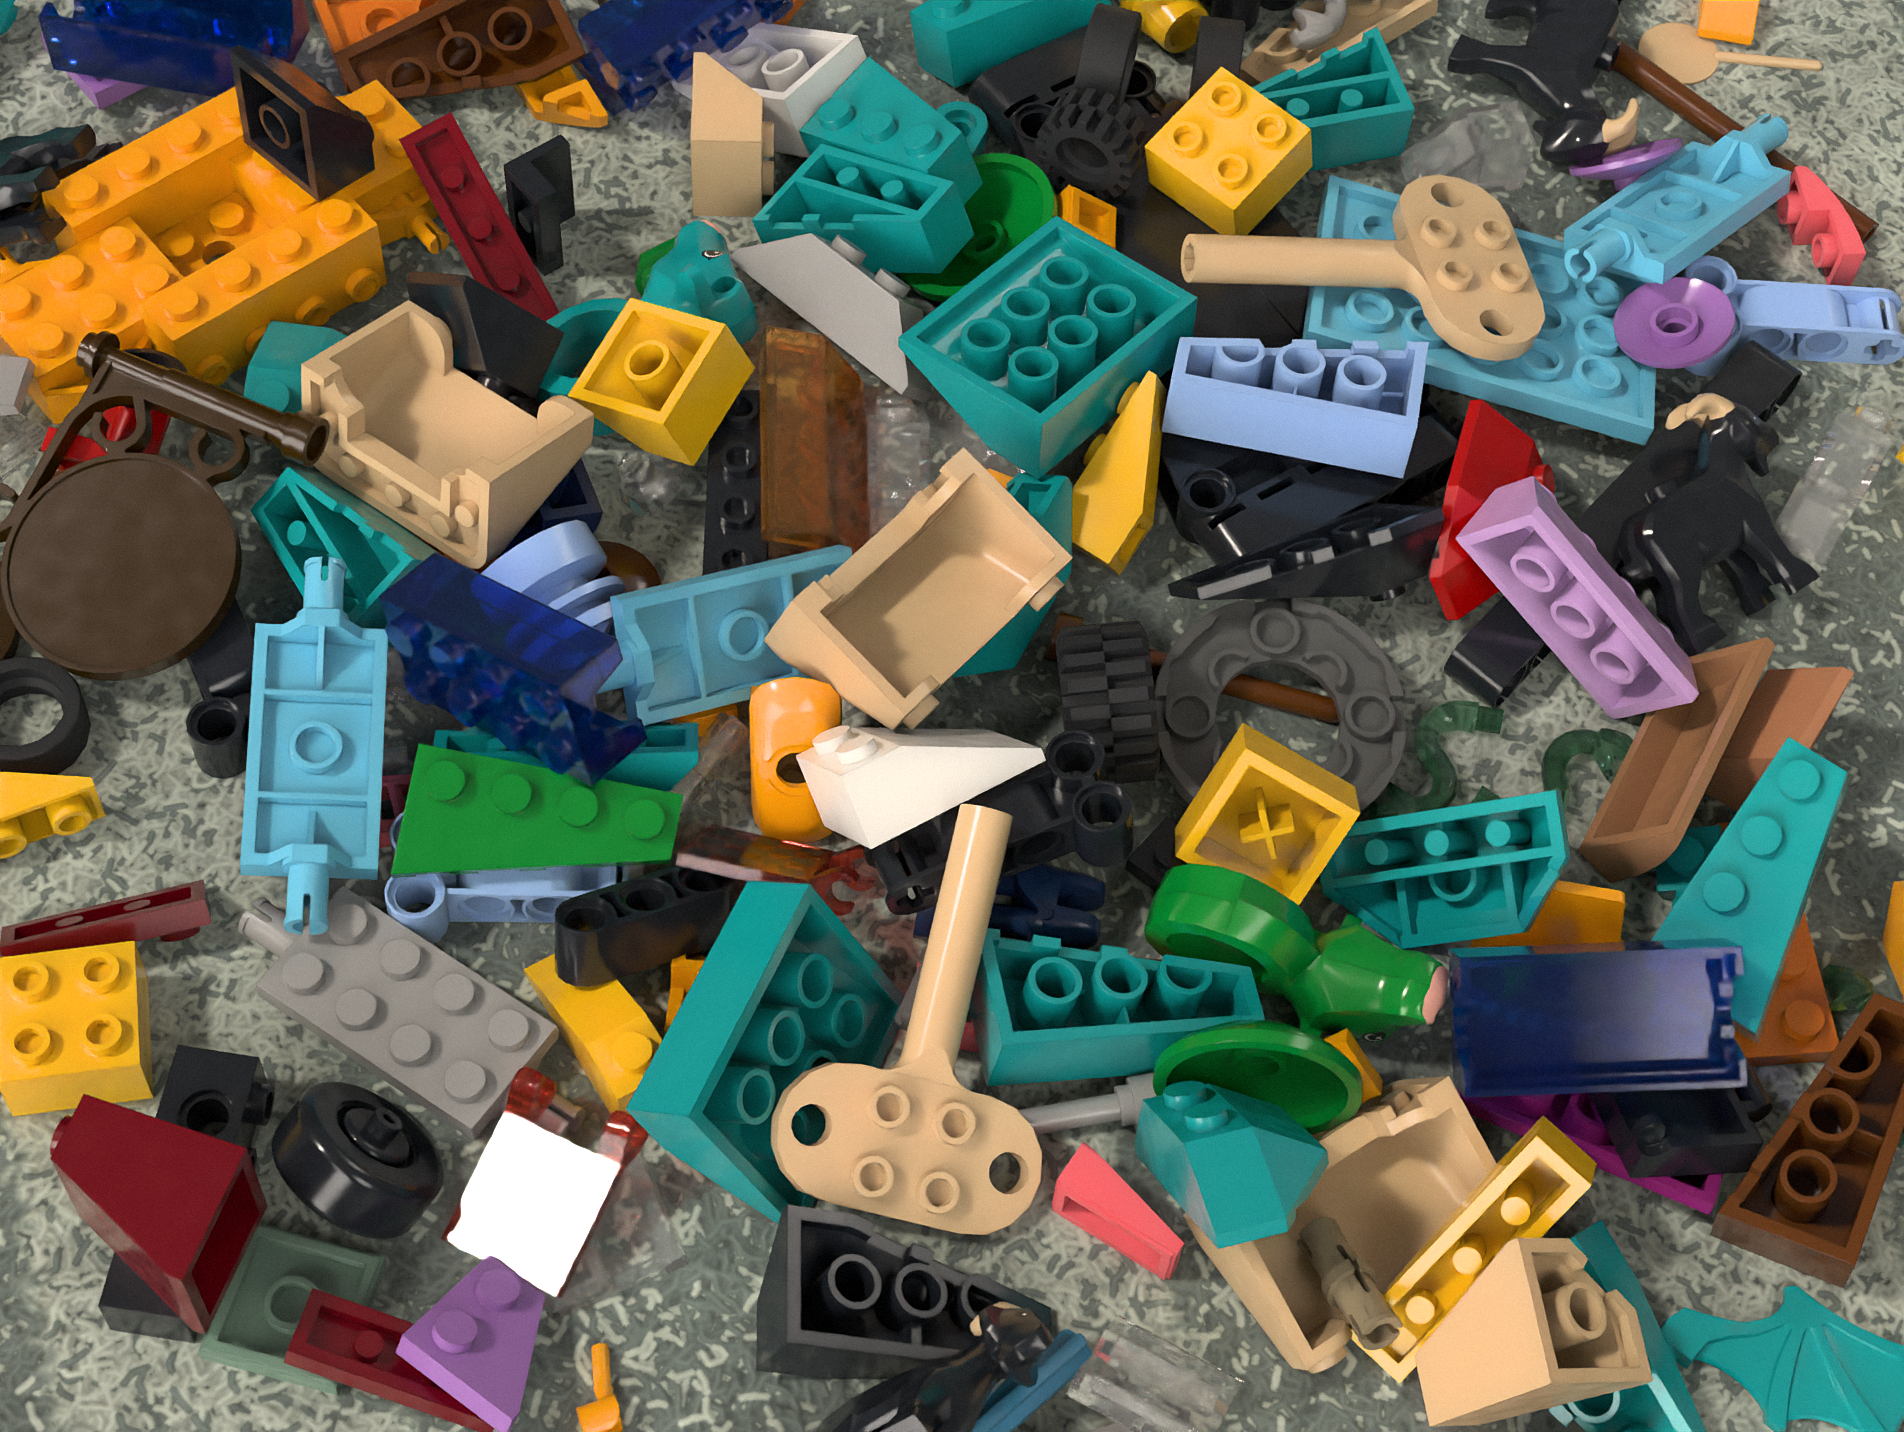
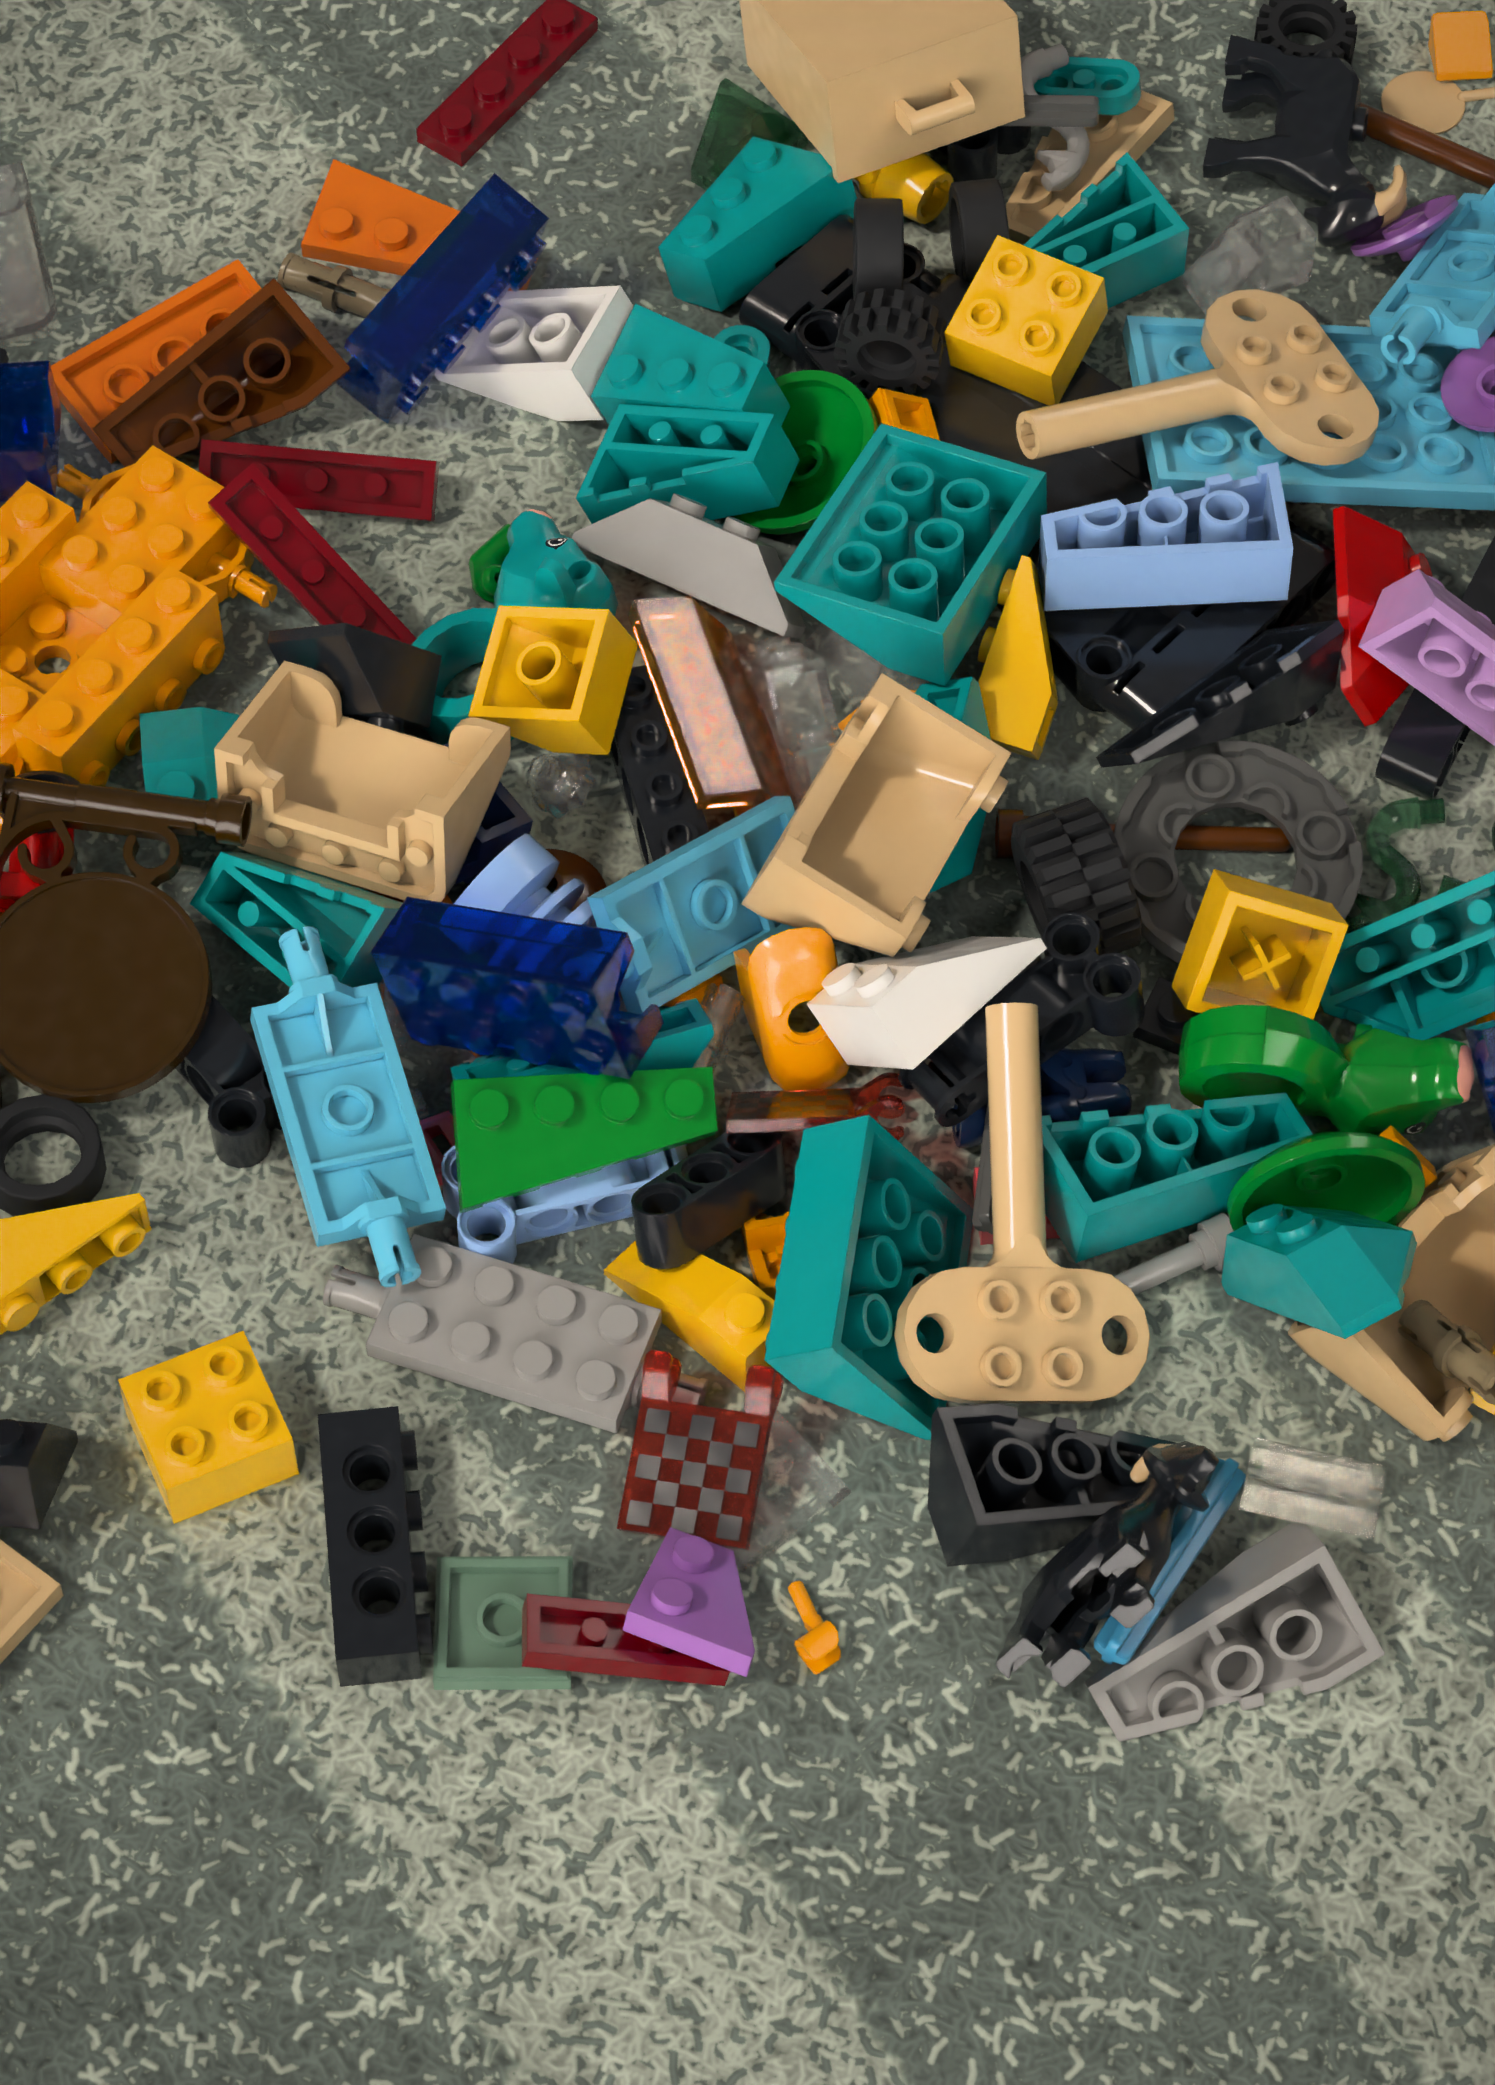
camera: 10 degrees left, 0 degrees up
(161, 1200) = (369, 1547): dark red slope -> none
(167, 913) = (249, 1303): dark red plate -> none
(300, 124) = (111, 513): black slope -> none
(357, 1160) = (520, 1475): black wheel -> none
(496, 137) = (331, 479): none -> dark red plate
(541, 199) = (360, 529): black panel -> none
(563, 100) = (336, 420): light orange slope -> none
(728, 143) = (523, 425): tan slope -> none
(1111, 1211) = (1226, 1347): coral slope -> none

